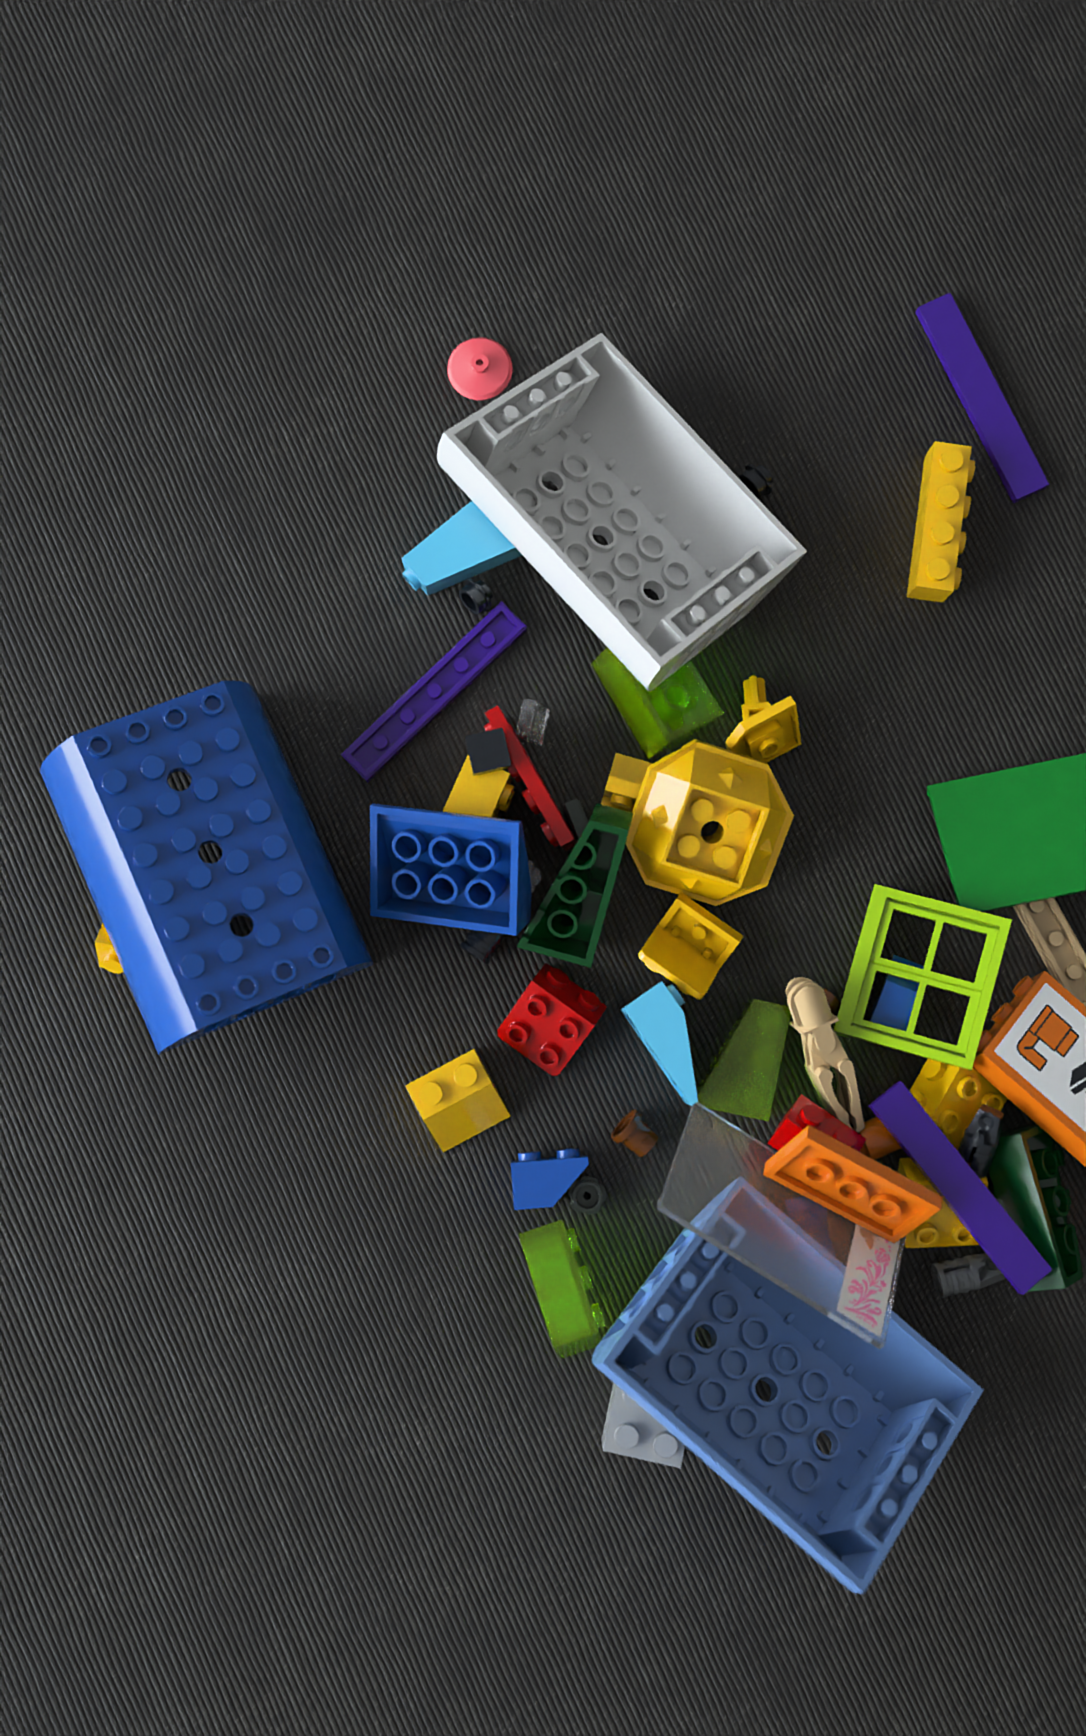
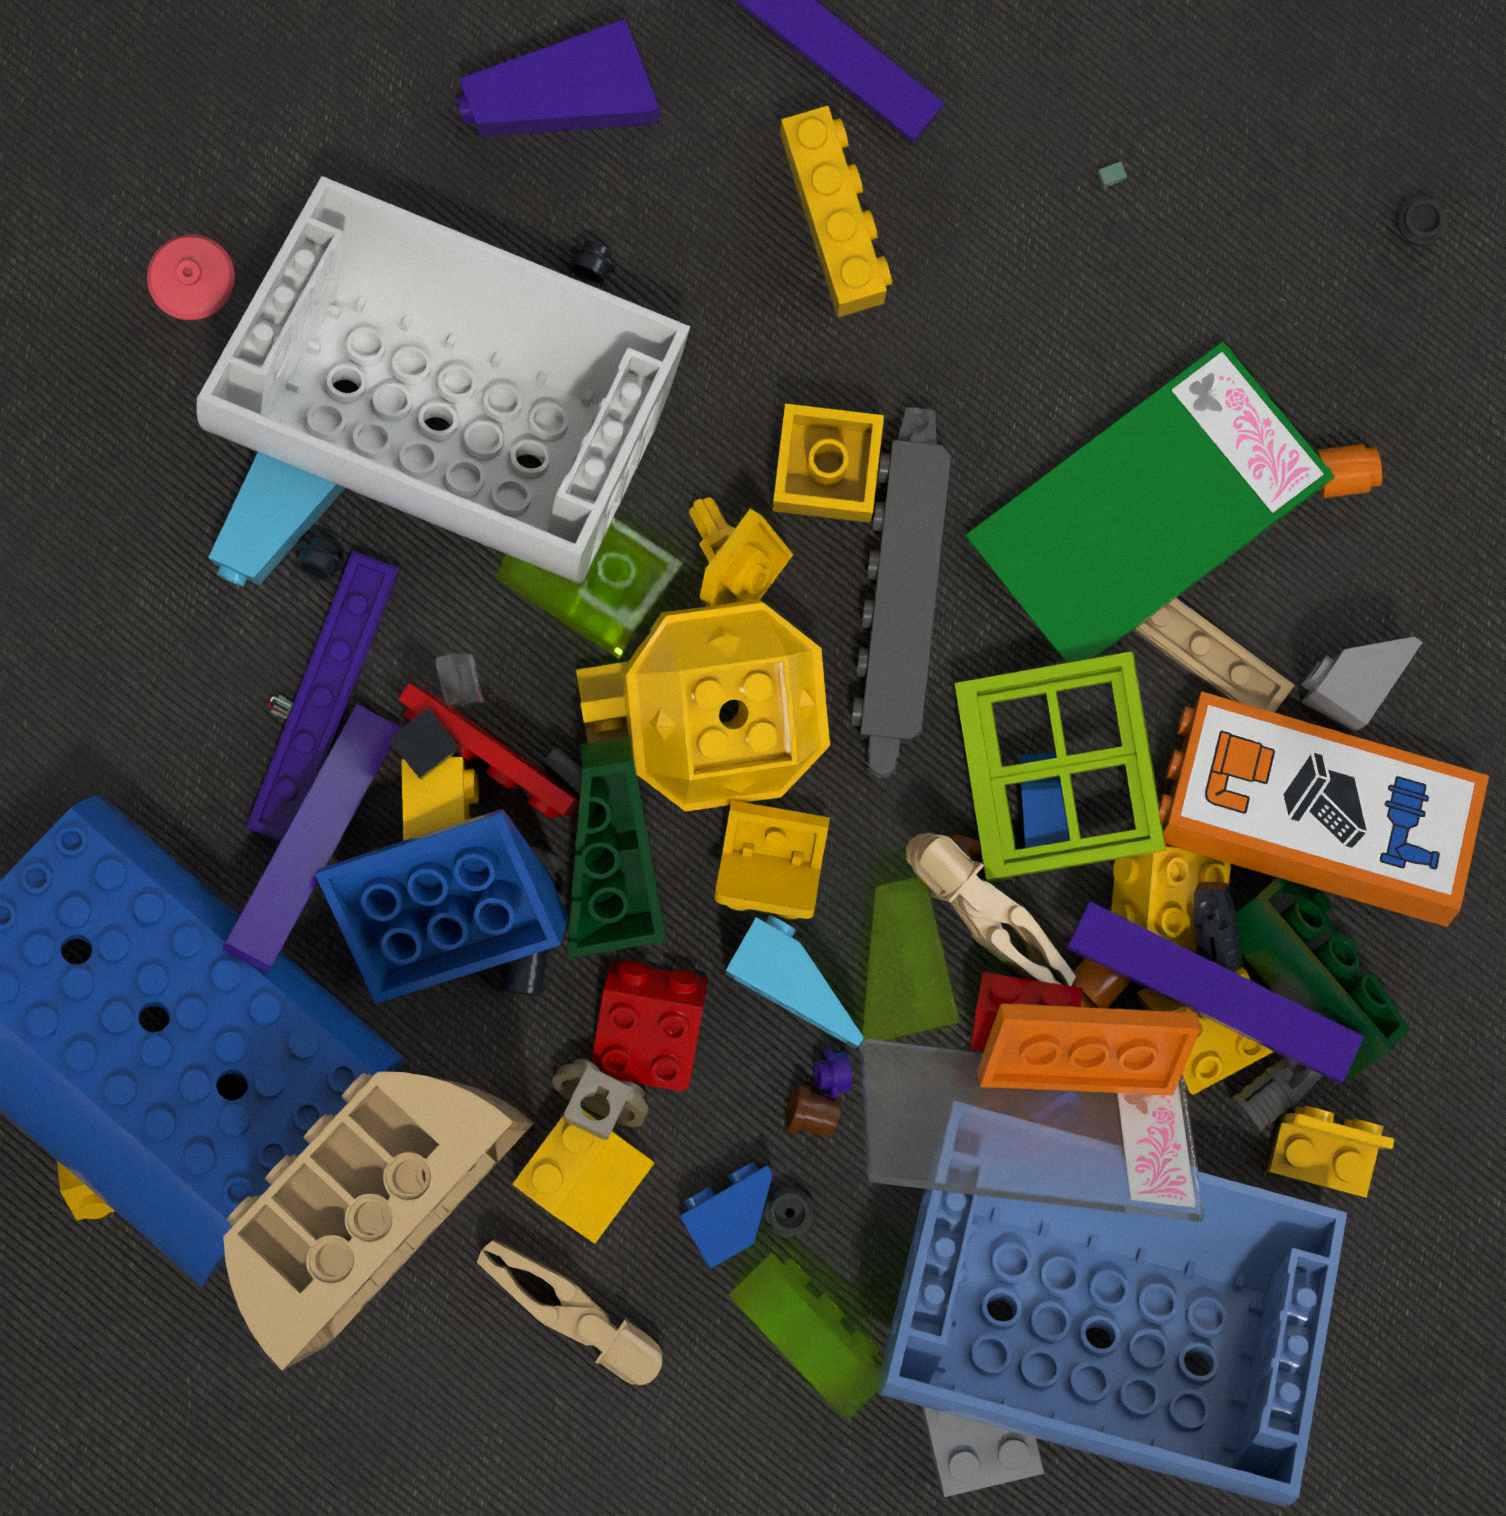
camera: 30 degrees left, 0 degrees up
(226, 1066) = (379, 1167): none -> tan slope
(377, 782) = (311, 839): none -> dark purple tile
(403, 684) = (282, 707): none -> sand green piece
(427, 1234) = (624, 1349): none -> tan arm
(502, 1059) = (588, 1087): none -> dark tan bracket
(662, 1113) = (833, 1073): none -> dark purple plate
(792, 354) = (563, 87): none -> dark purple slope
(856, 691) = (828, 463): none -> yellow brick
(867, 805) = (904, 591): none -> dark grey hinge
(982, 1335) = (1325, 1152): none -> yellow bracket

